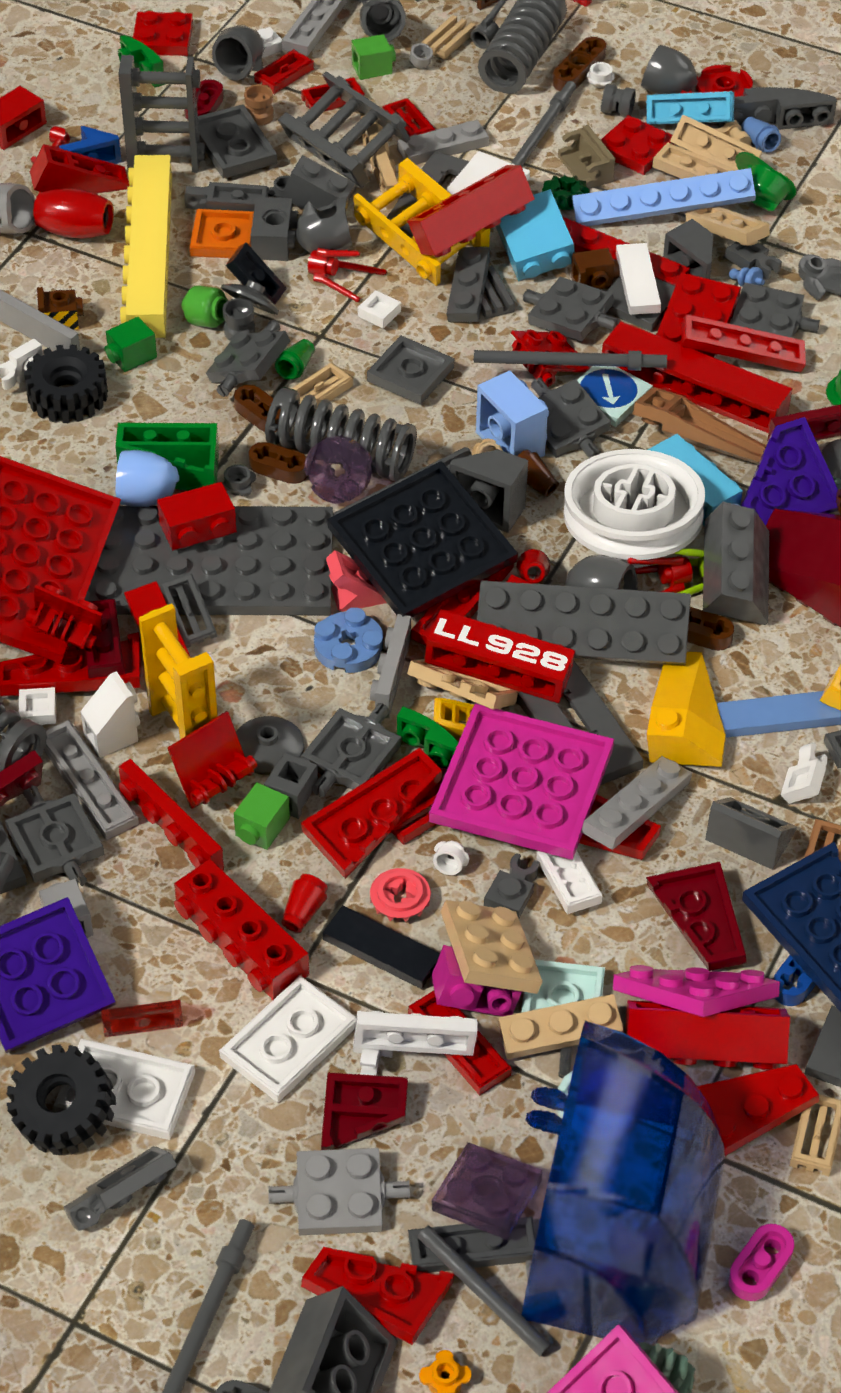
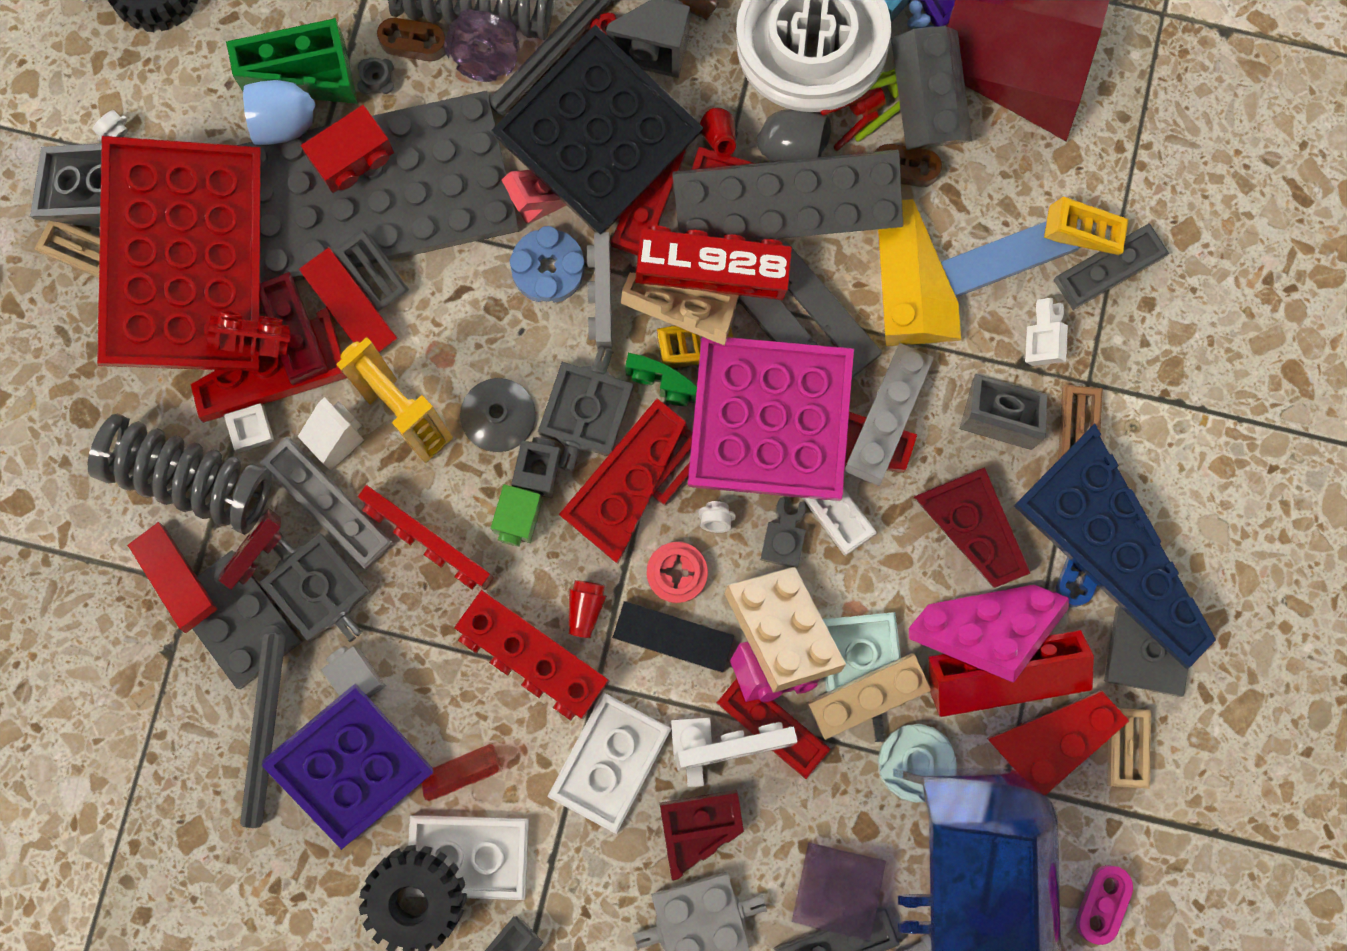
camera: 15 degrees left, 30 degrees up
(210, 760) = (448, 467): red hinge -> none

